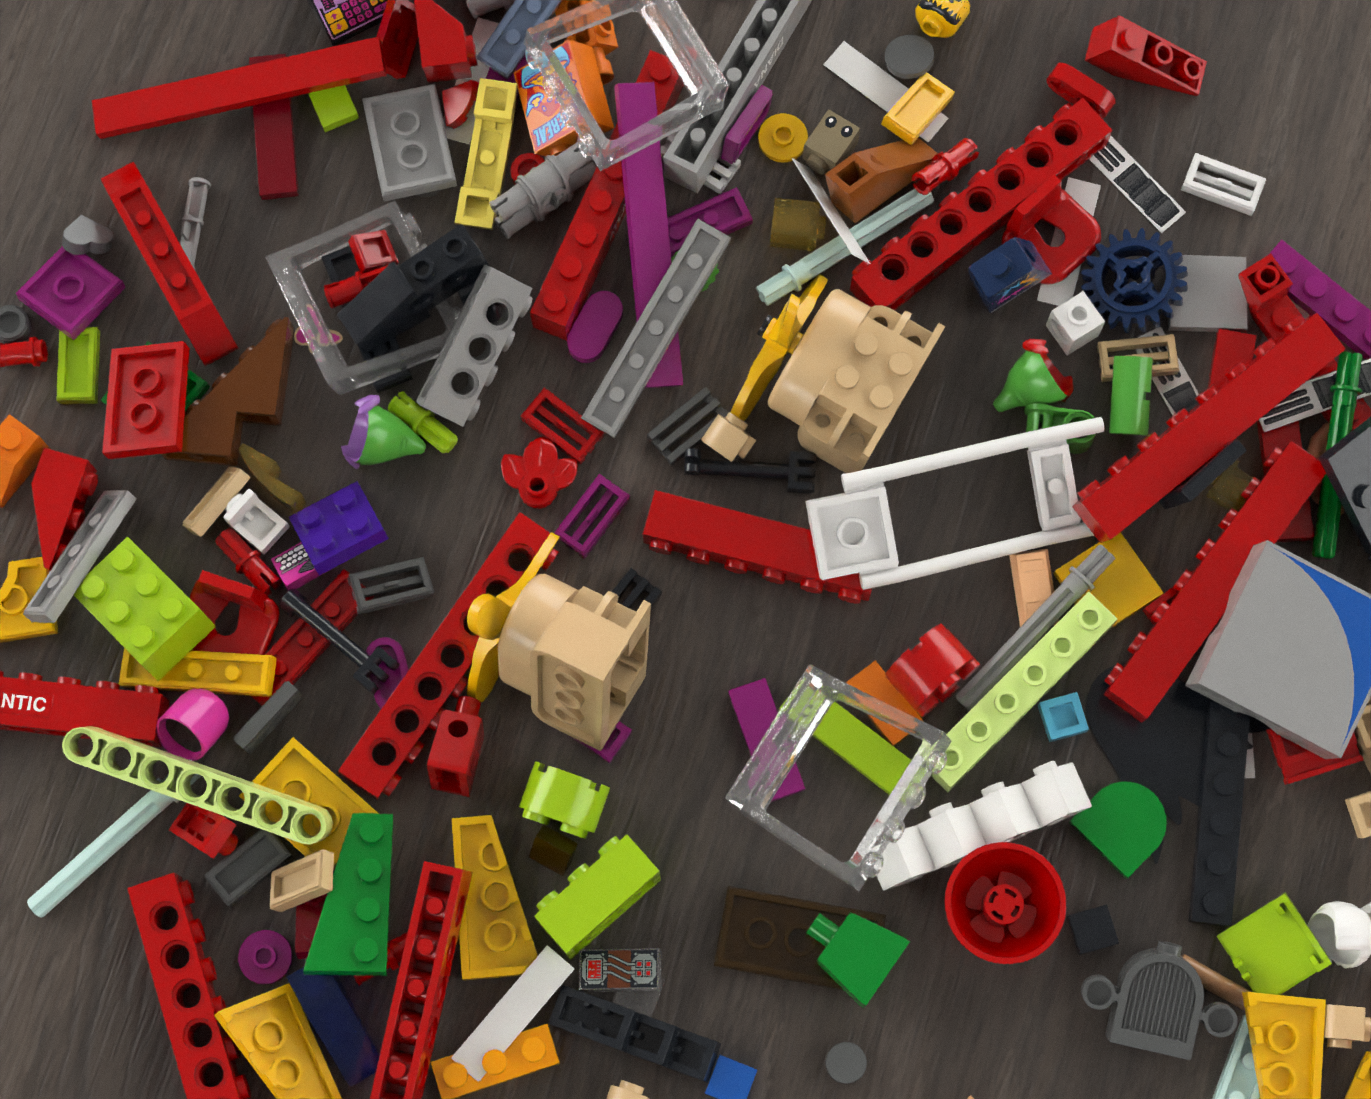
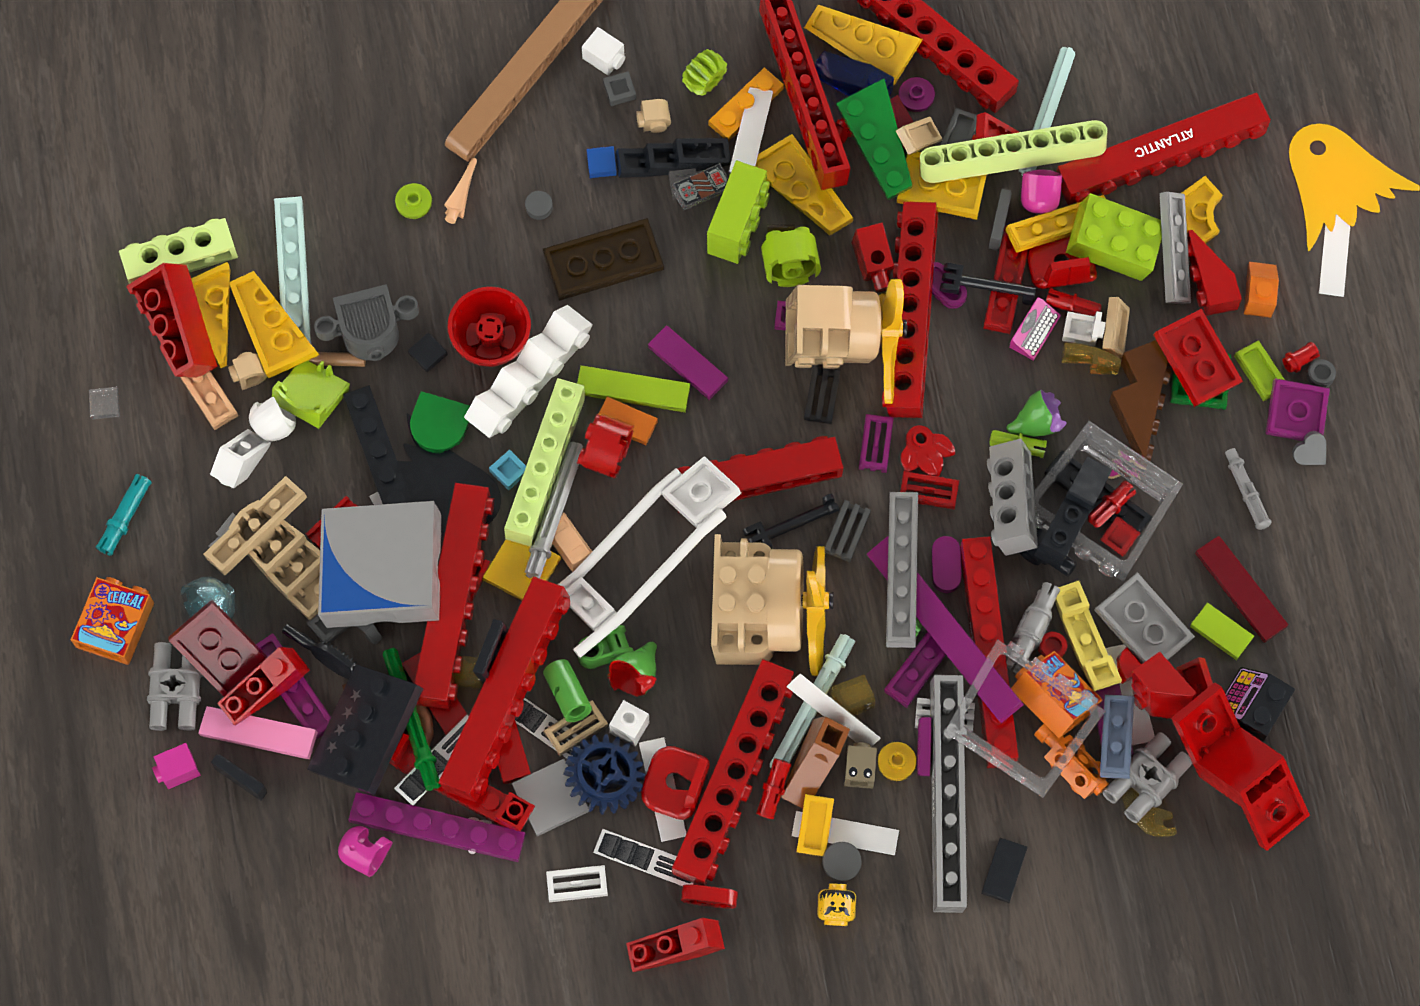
camera: 150 degrees right, 5 degrees down
(169, 264) = (1252, 455): red slope -> none
(239, 88) = (1277, 595): red tile -> none
(338, 528) = (1029, 348): dark purple plate -> none
(396, 599) = (984, 339): dark grey tile -> none
(728, 437) = (815, 529): tan plate -> none
(785, 743) = (674, 355): clear windscreen -> none
(857, 954) = (563, 258): green torso -> none
(1007, 272) = (697, 721): dark blue torso -> none

